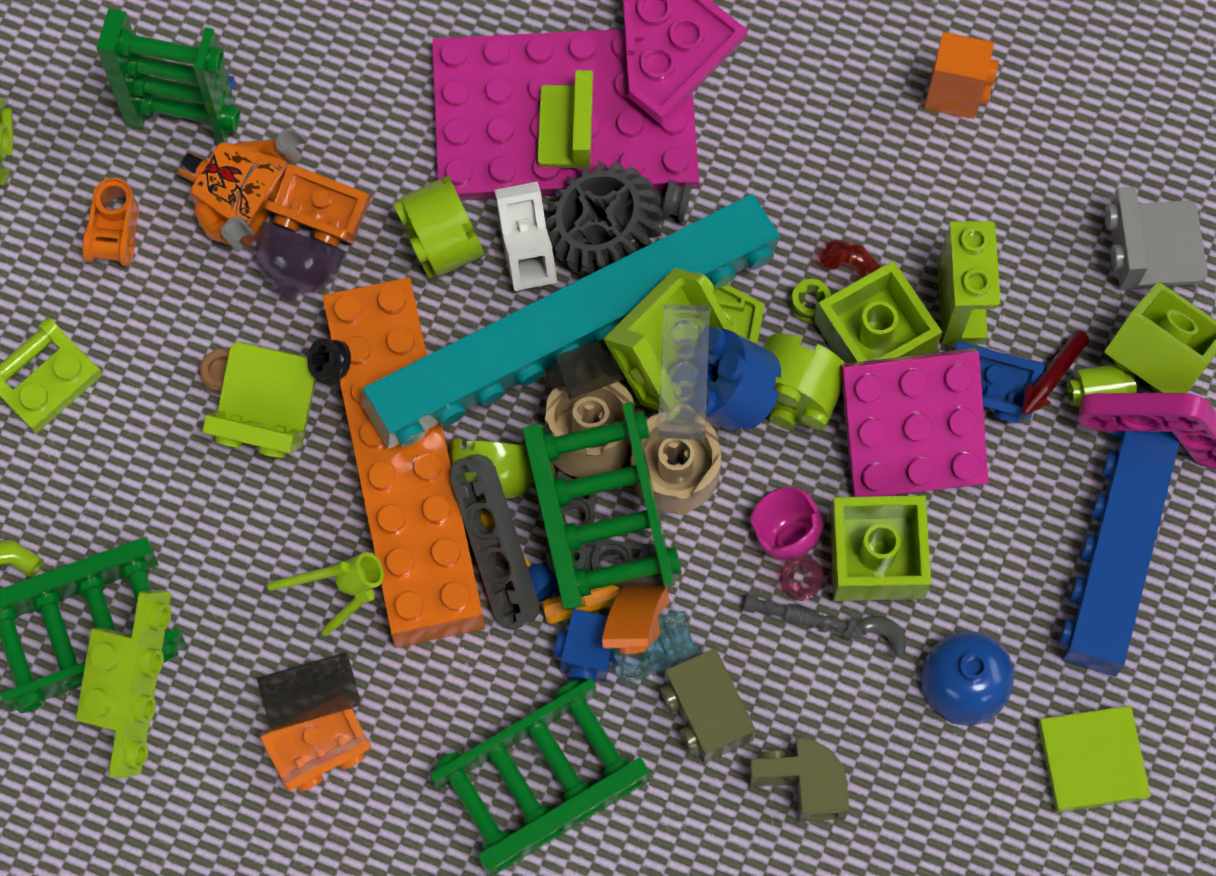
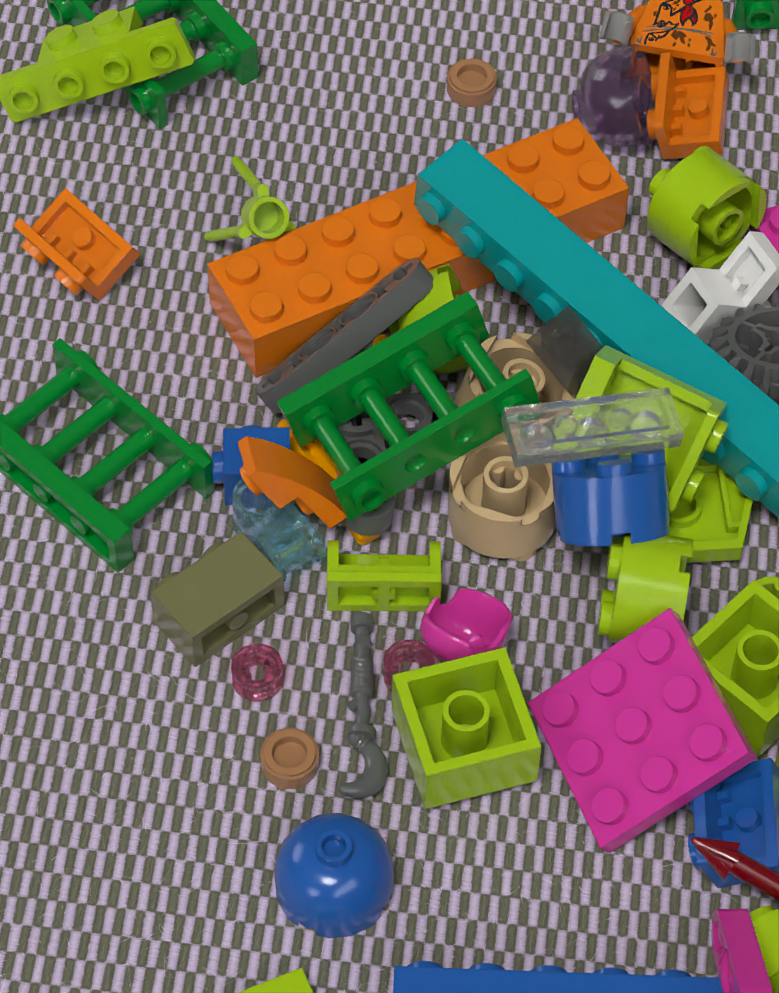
camera: 75 degrees right, 15 degrees down
(263, 400) = (438, 113): lime bracket -> none
(309, 691) = (130, 220): clear smoke panel -> none
(329, 359) = (501, 133): black bush -> none
(715, 573) = (382, 581): none -> lime hinge
(789, 684) = (242, 678): none -> clear pink bush
(817, 777) = (153, 729): olive brick -> none
(857, 686) = (289, 758): none -> medium nougat tile

